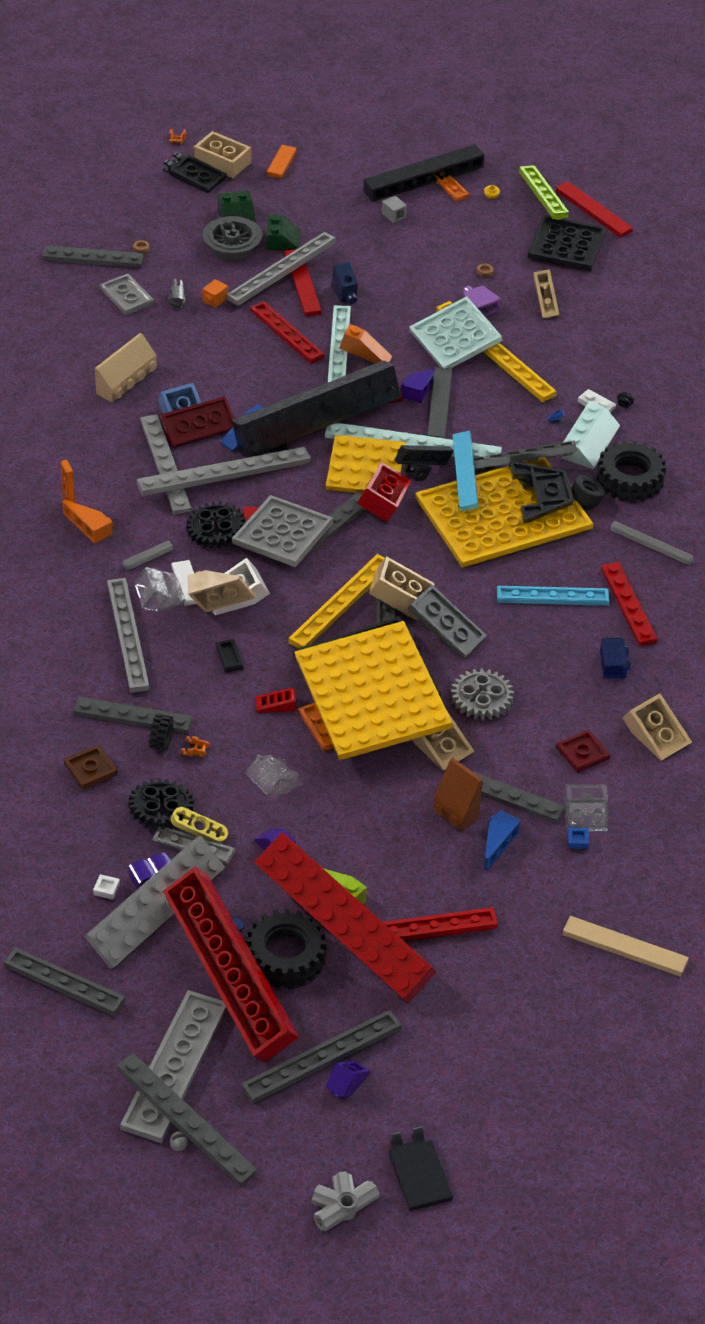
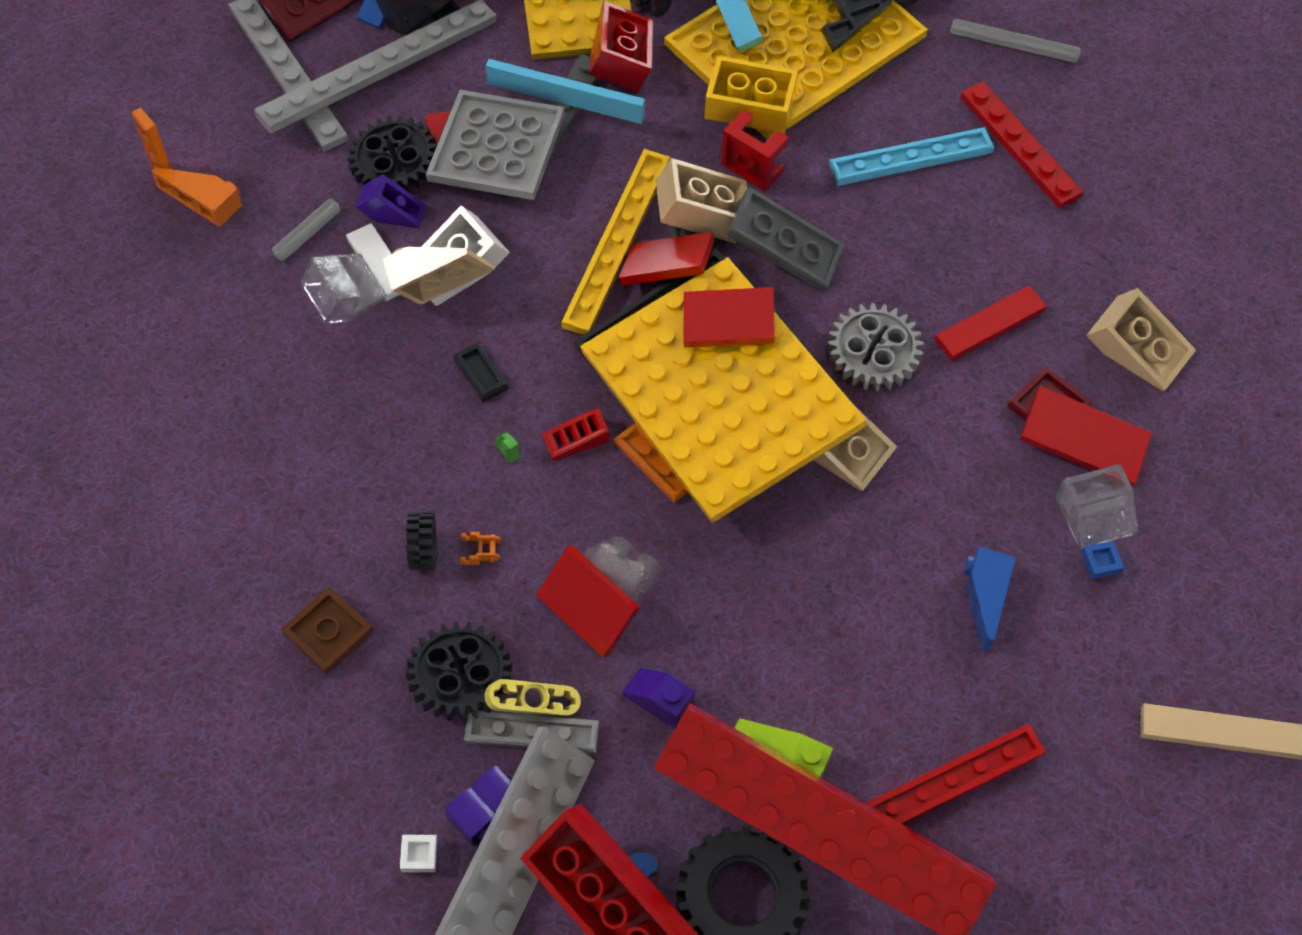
camera: 15 degrees left, 15 degrees up
(128, 635) = (318, 377): light grey plate -> none
(128, 714) = (361, 515): dark grey plate -> none
(204, 551) = (390, 203): none -> dark purple slope
(231, 698) = (508, 447): none -> bright green tile
(249, 784) = (588, 601): none -> red tile
(337, 509) = (565, 91): none -> medium azure tile
(366, 616) = (667, 258): none -> red tile
(389, 651) = (729, 317): none -> red tile
(443, 571) = (751, 157): none -> red panel
(455, 534) = (751, 86): none -> yellow brick
(458, 795) = (913, 541): dark orange slope -> none
(521, 799) = (968, 509): dark grey plate -> none
(564, 699) = (990, 323): none -> red tile
(595, 768) = (1084, 434): none -> red tile
(614, 658) = (1037, 238): clear blue brick -> none

